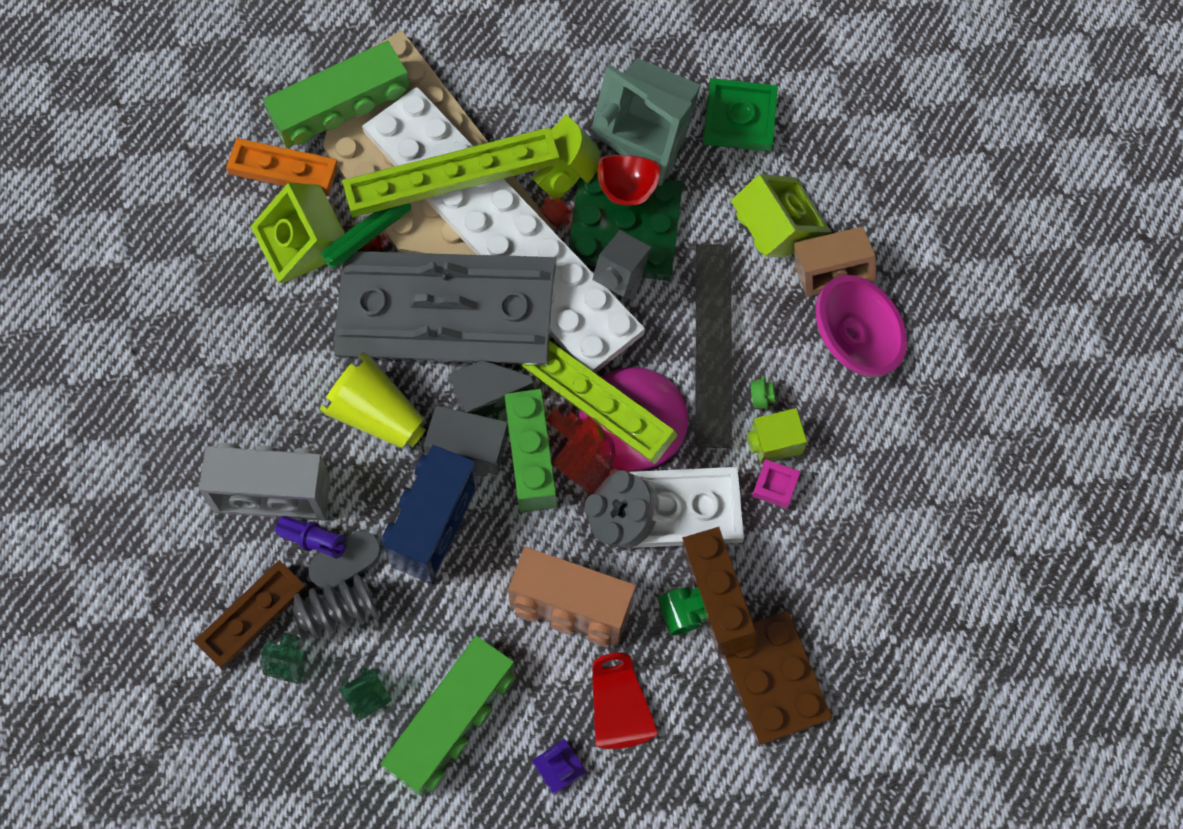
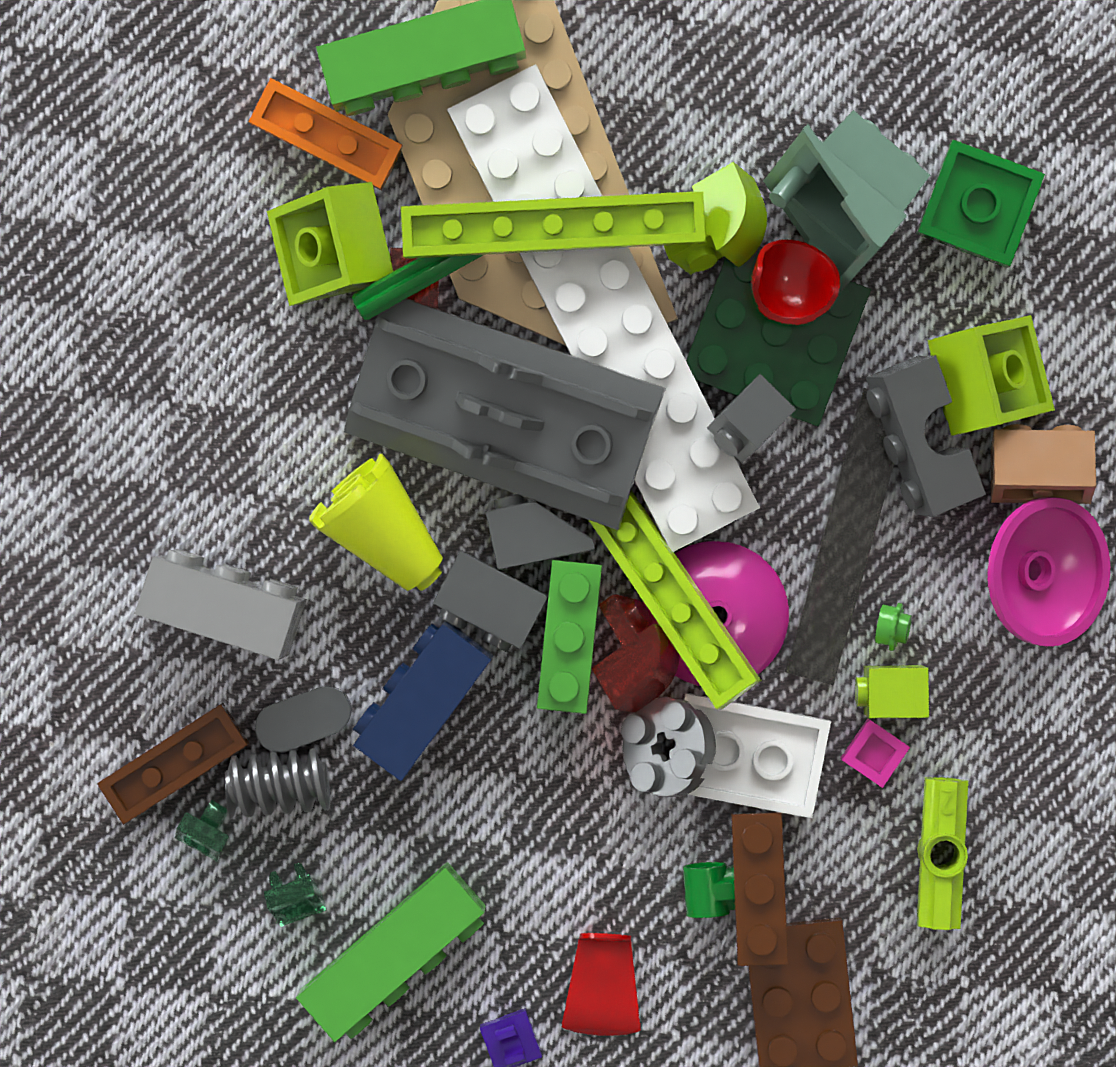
camera: 15 degrees right, 20 degrees up
(311, 536) = (267, 683): dark purple axle -> none
(555, 212) = (684, 295): clear red plate -> none
(570, 597) = (574, 852): nougat brick -> none
(758, 284) = (904, 401): none -> dark grey arch
(851, 564) = (942, 885): none -> lime piece

